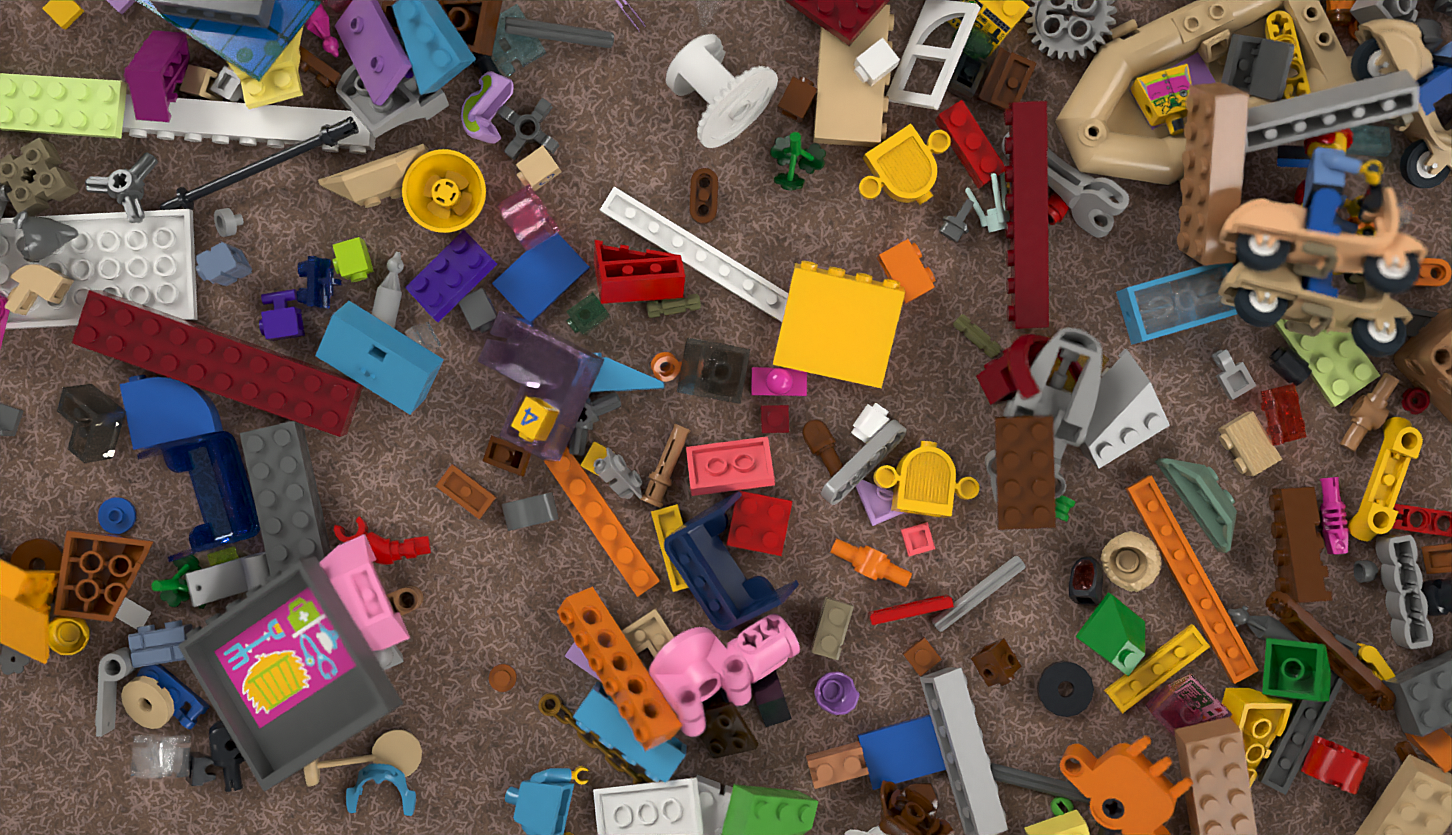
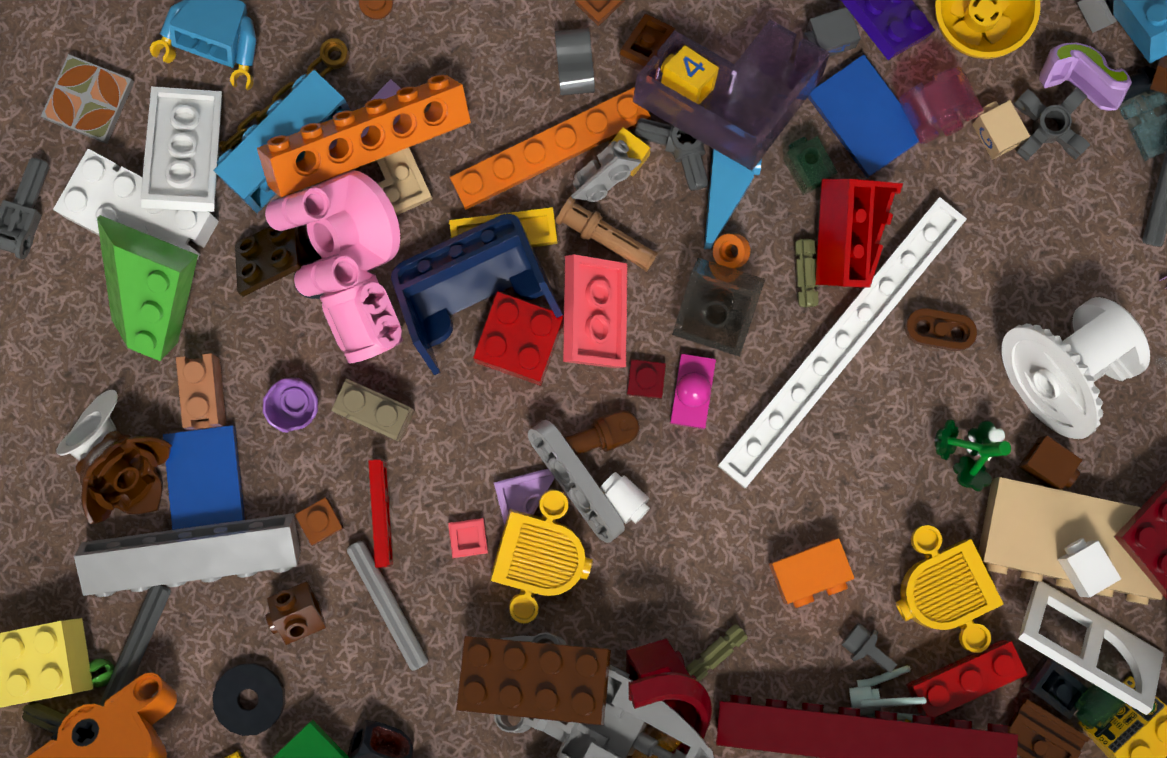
camera: 105 degrees right, 5 degrees down
(771, 700) = (296, 323): black slope -> none
(839, 324) = (756, 472): yellow panel -> none
(871, 562) = (447, 473): orange pin -> none
(1062, 507) = (481, 727): green wheel -> none

